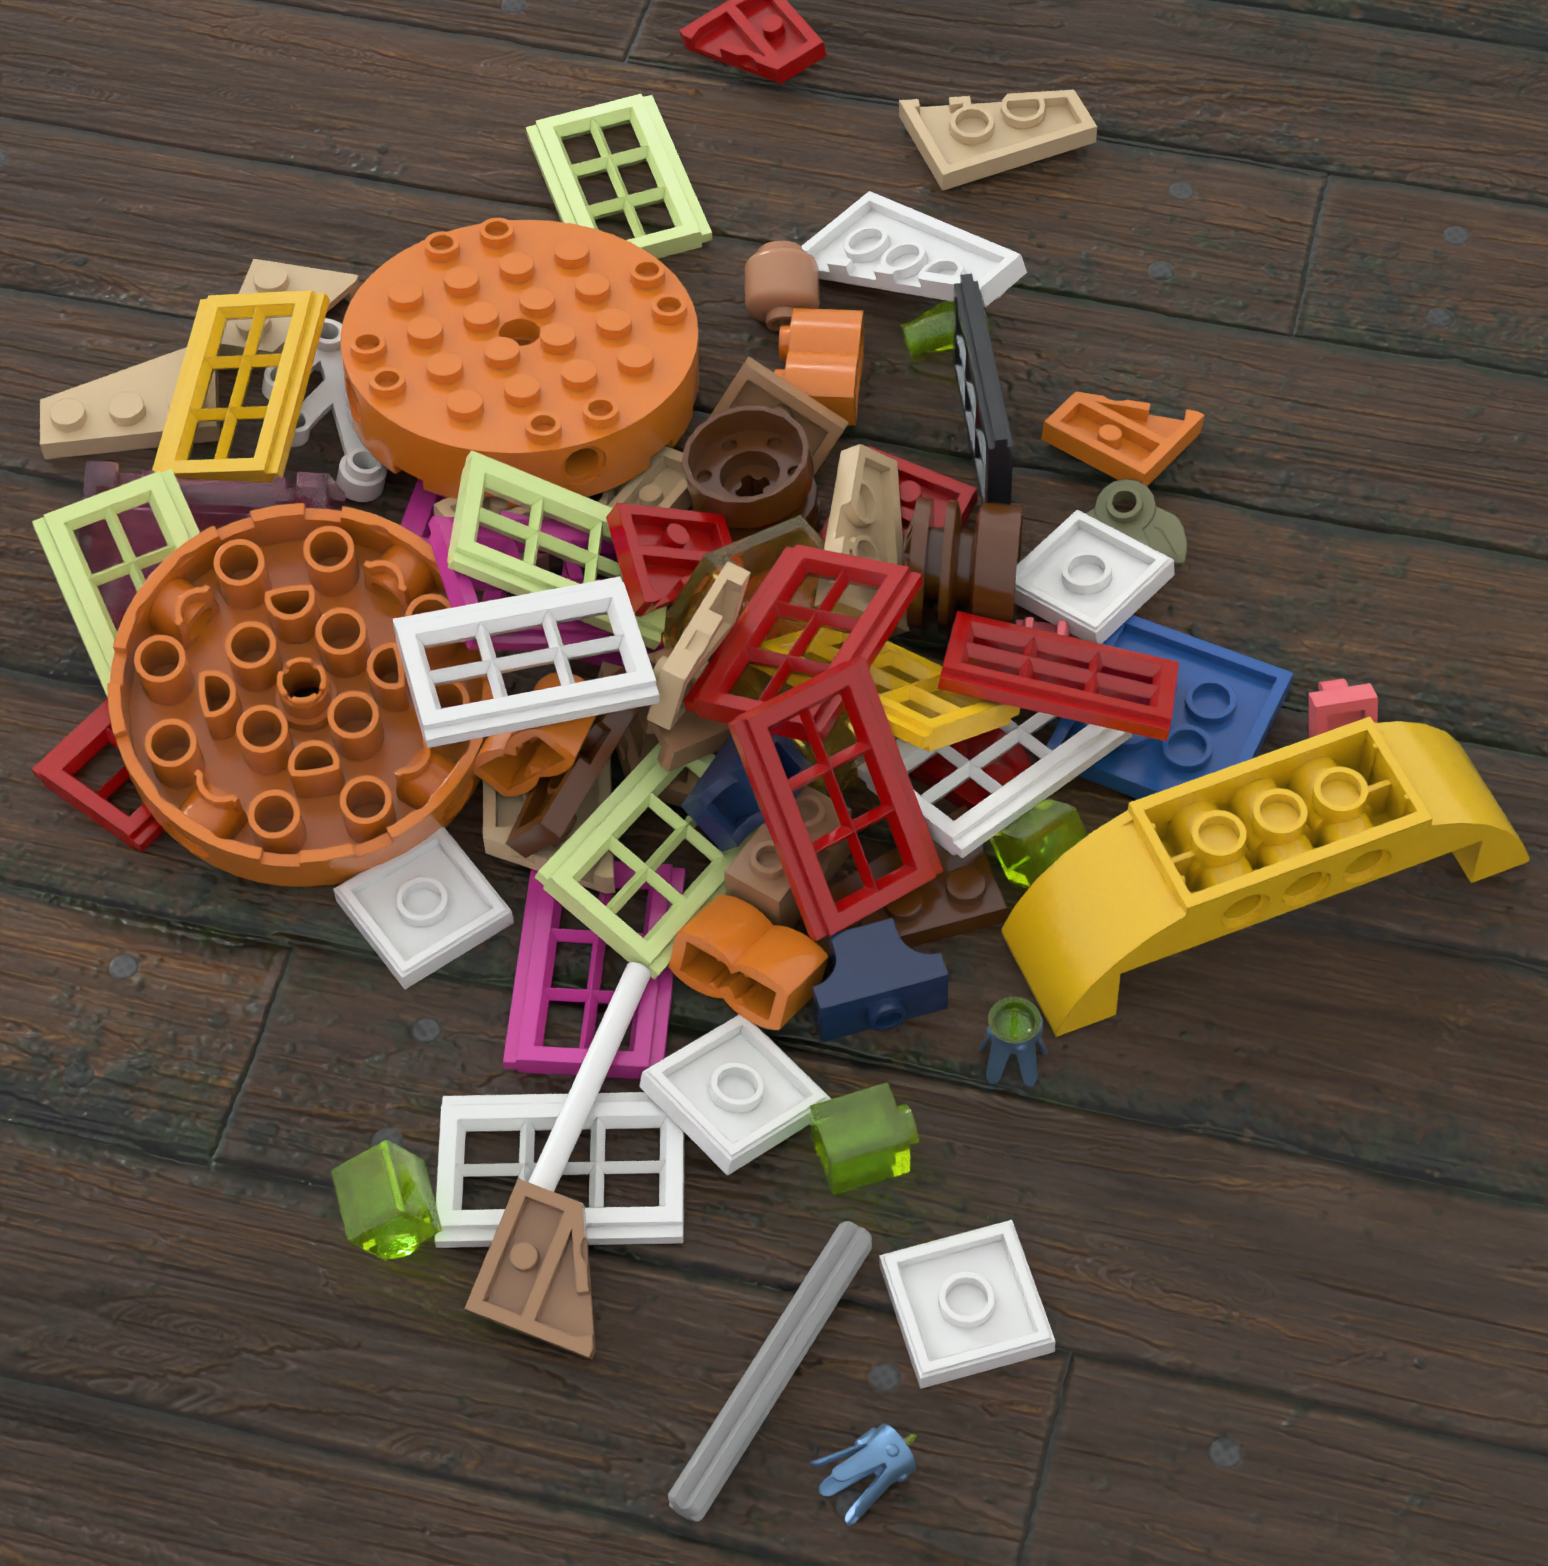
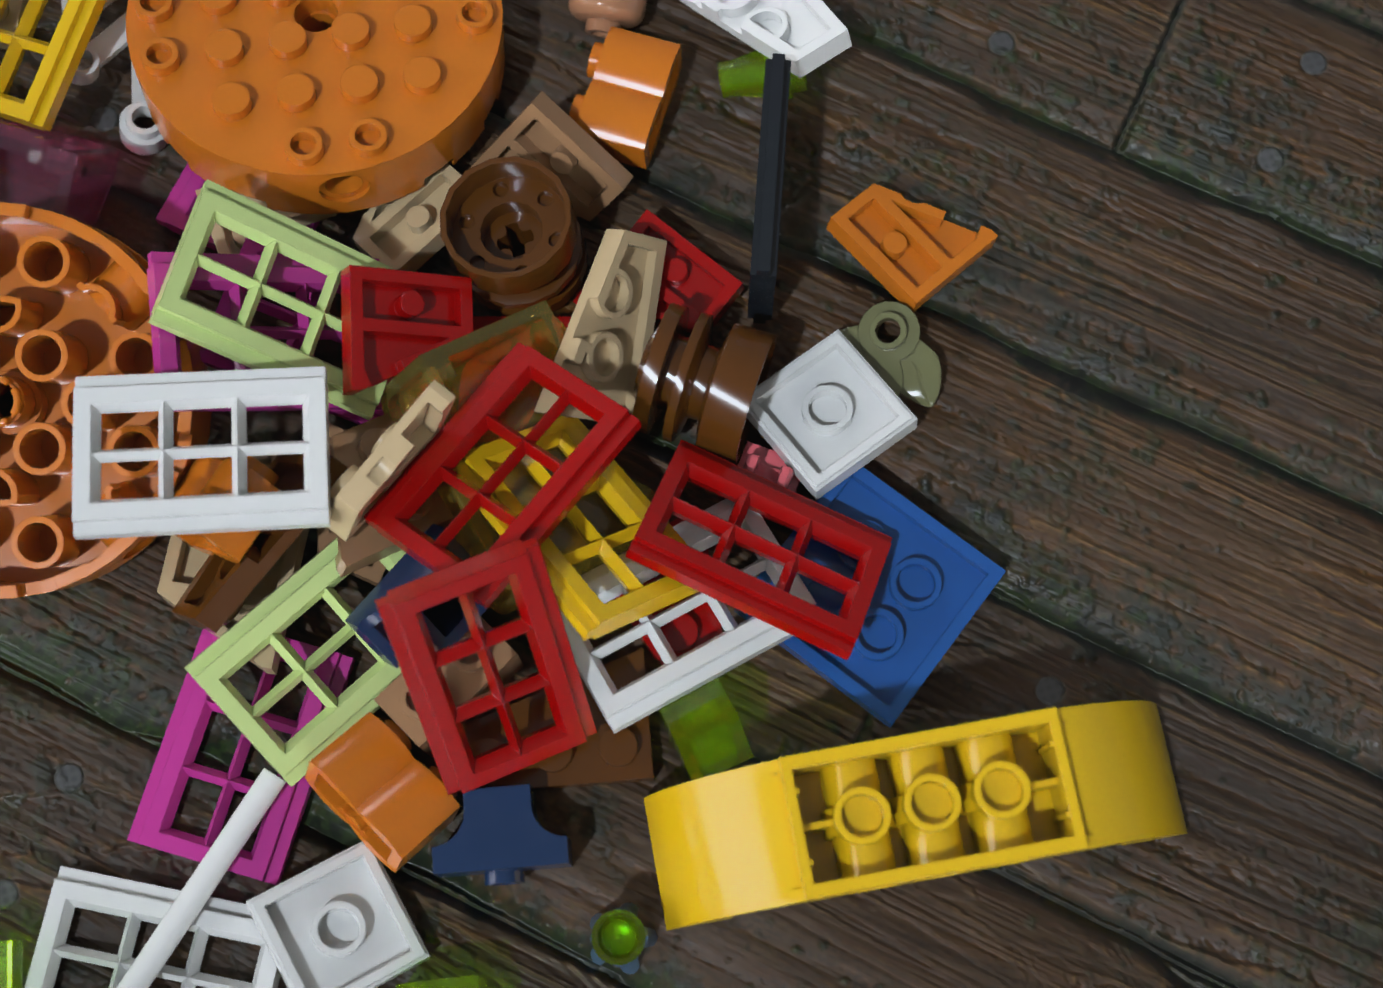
camera: 10 degrees right, 20 degrees up
(423, 907) = (93, 643): white tile -> none
(1340, 705) = (1041, 632): coral tile -> none

